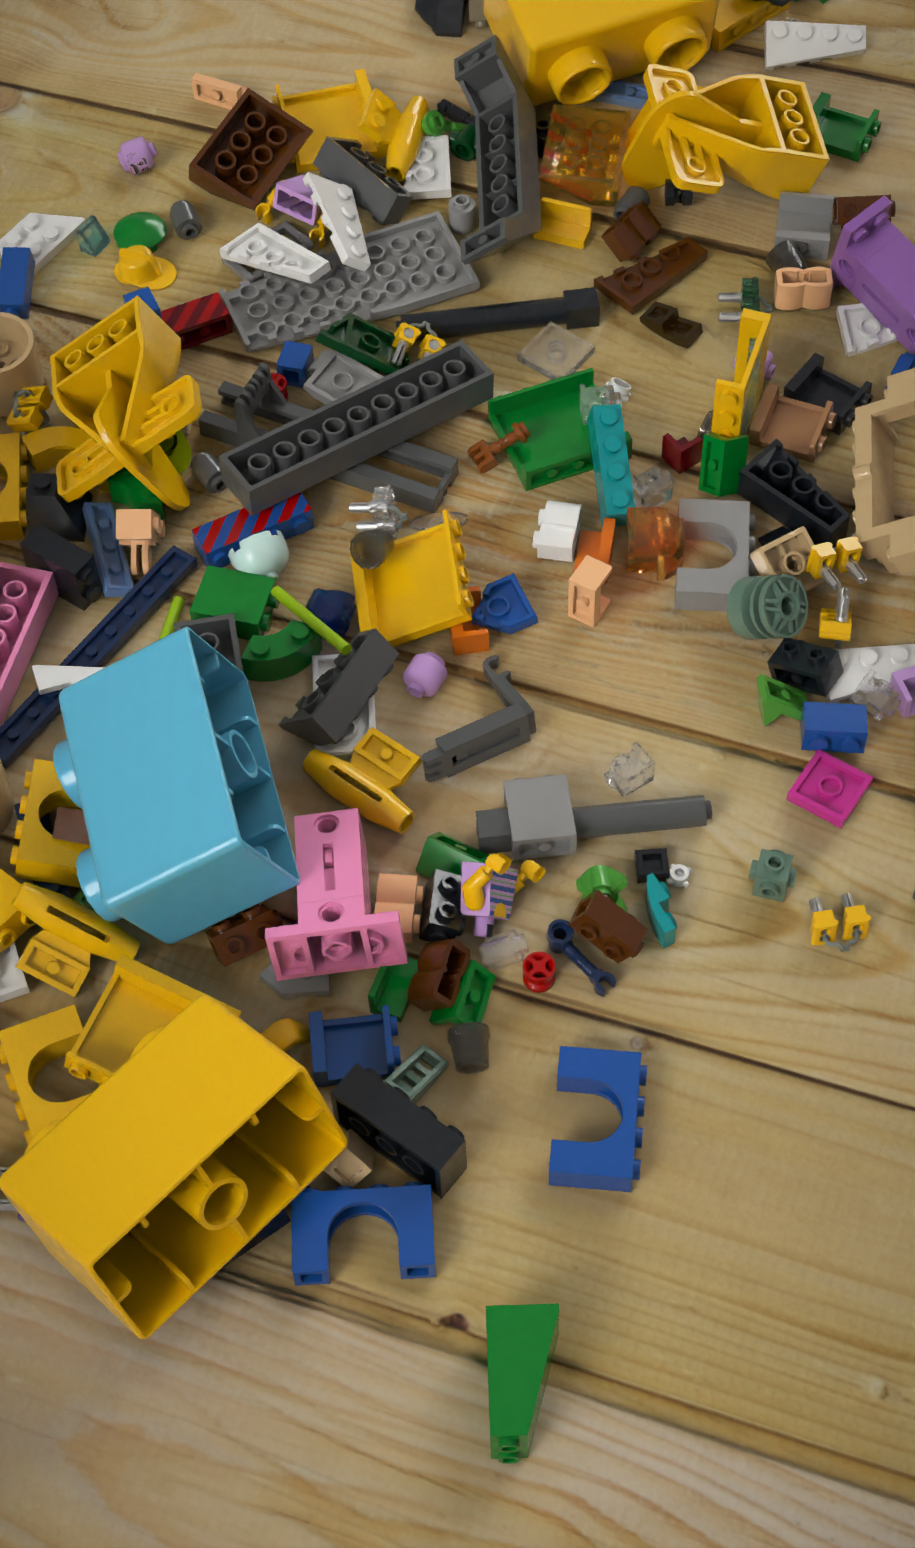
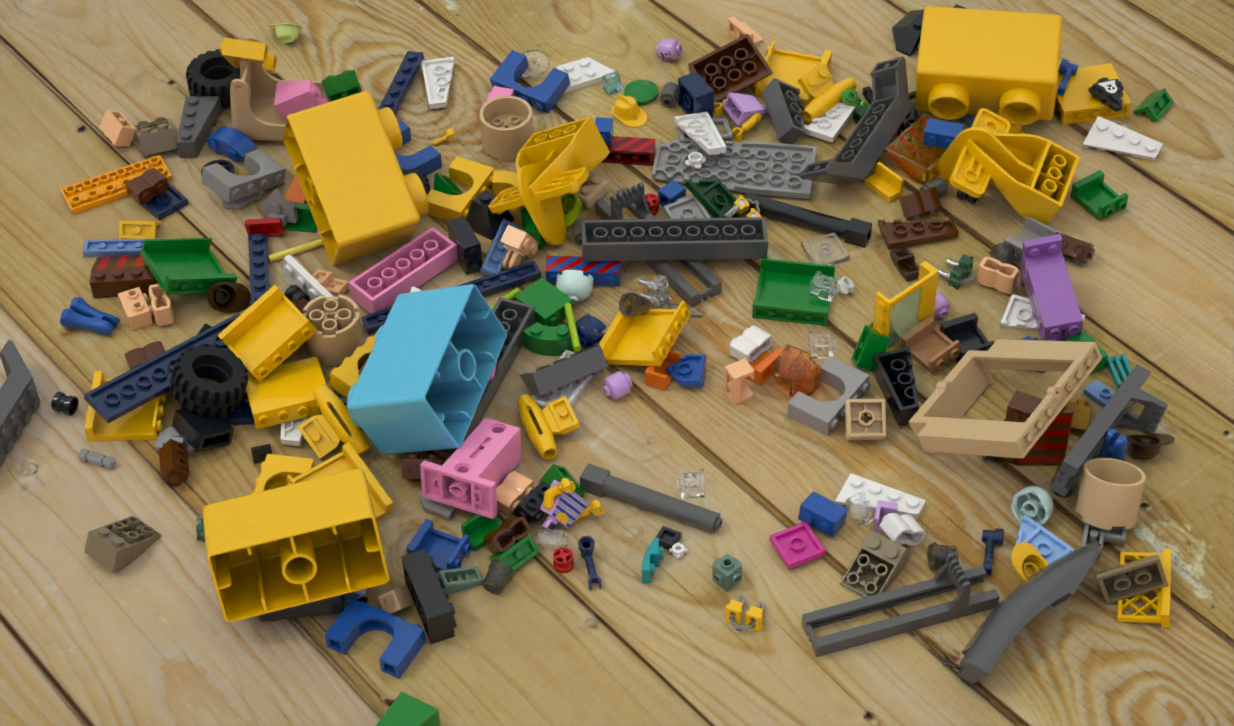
camera: 30 degrees right, 10 degrees down
(32, 410) = (503, 162): yellow piece -> none
(228, 206) = (695, 94): none -> dark blue brick
(287, 1033) = (404, 526): yellow hair -> none
(295, 299) = (695, 160): none -> white plate
(341, 218) = (752, 126): white wing -> none
(461, 214) = (827, 150): light grey brick -> none
(484, 455) = (741, 286): dark orange hinge -> none
(486, 736) = (625, 430): dark grey hinge -> none
(540, 817) = (621, 482): light grey panel -> none
(605, 880) = (625, 535): bright green brick -> none
(607, 124) = (941, 133): none -> blue brick
(608, 927) = (613, 553): reddish brown brick -> none
(610, 462) = (803, 316): teal brick -> none
(611, 1161) = (528, 667): blue arch -> none
(681, 453) = (852, 334): dark red panel -> none
(767, 607) = (831, 432): sand green wheel -> none
(778, 699) = (801, 483): bright green slope -> none
(806, 666) = (832, 475): black brick -> none
(836, 622) = (870, 460): yellow piece -> none
(843, 557) = (897, 427): yellow piece -> none

